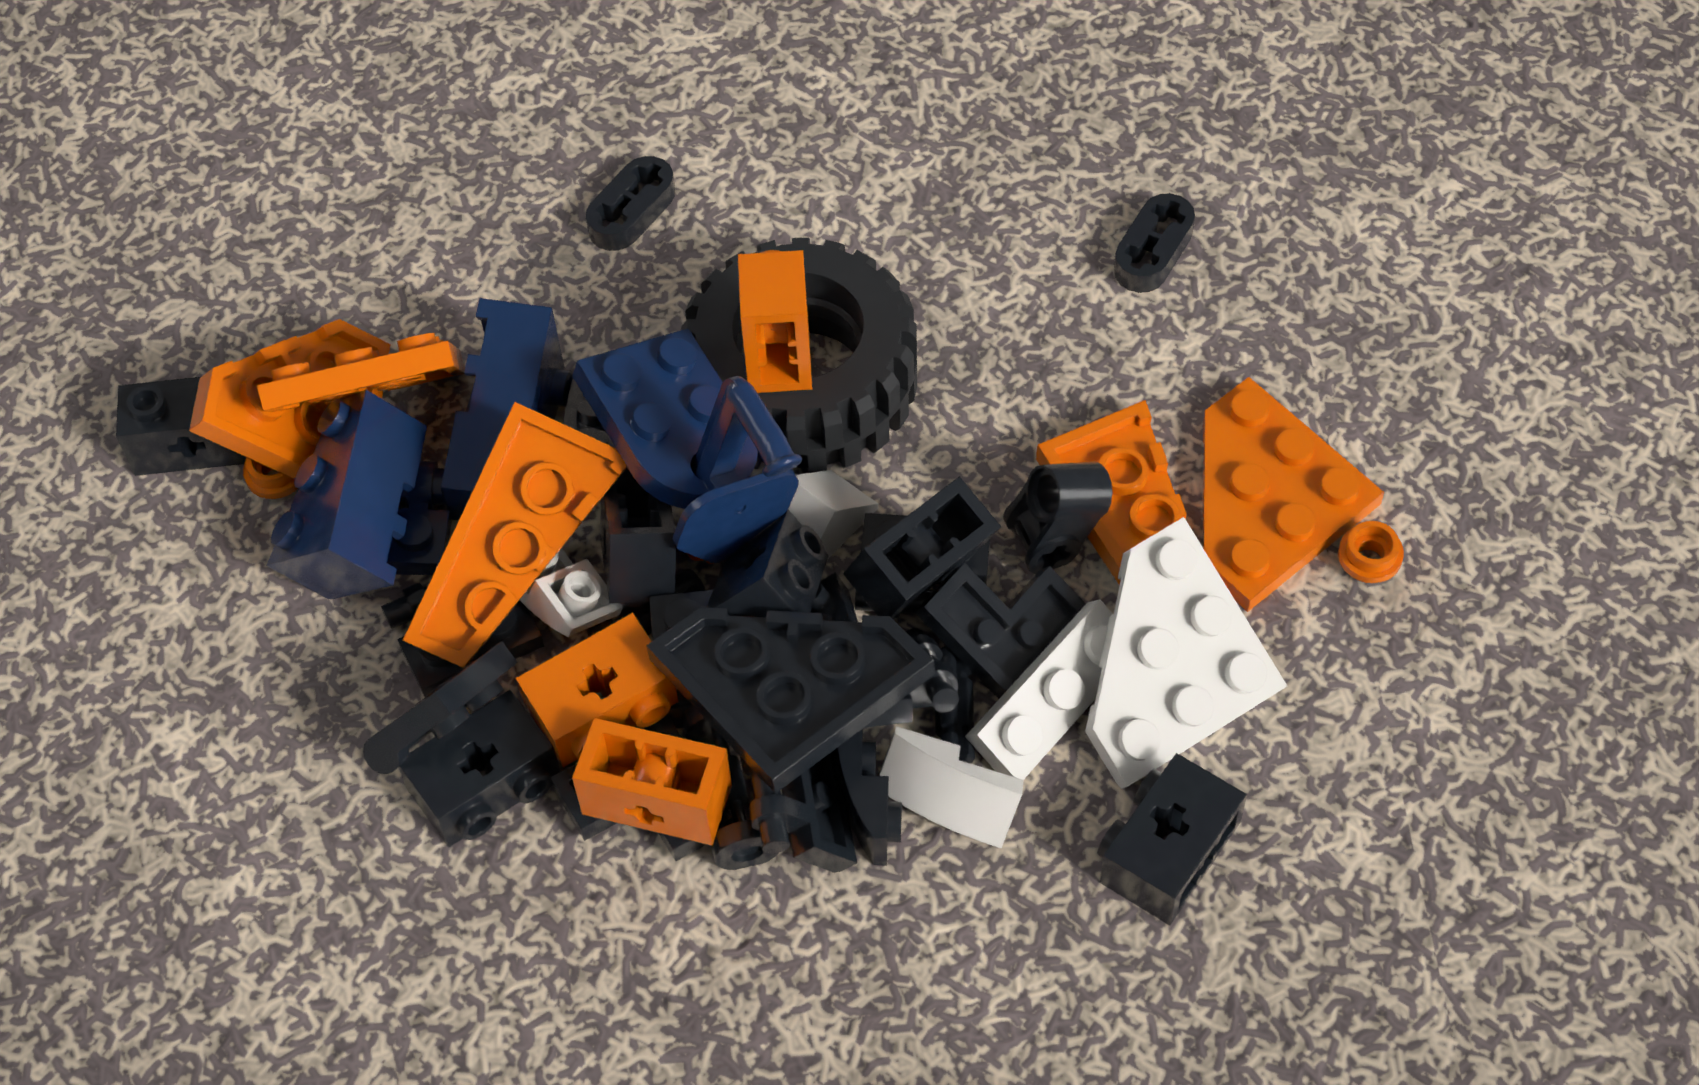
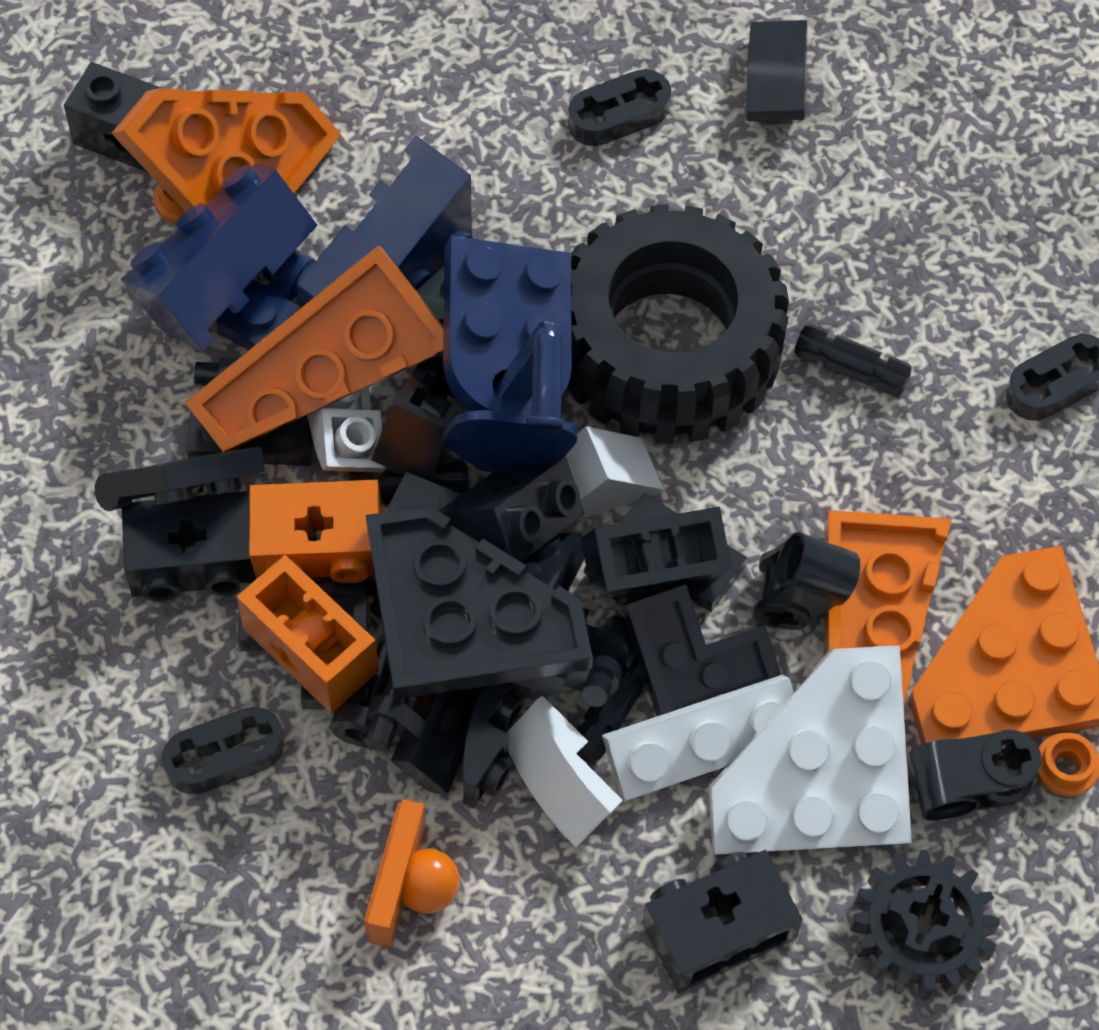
camera: 25 degrees right, 5 degrees up
(419, 361) = (286, 153): orange plate -> none
(615, 926) = (218, 737): none -> black beam
(753, 107) = (777, 71): none -> black slope
(775, 320) = (639, 285): orange brick -> none
(872, 953) = (408, 876): none -> orange tile
(972, 313) = (853, 359): none -> black axle
(1303, 597) = (963, 777): none -> black piece
(1325, 764) = (950, 934): none -> black gear

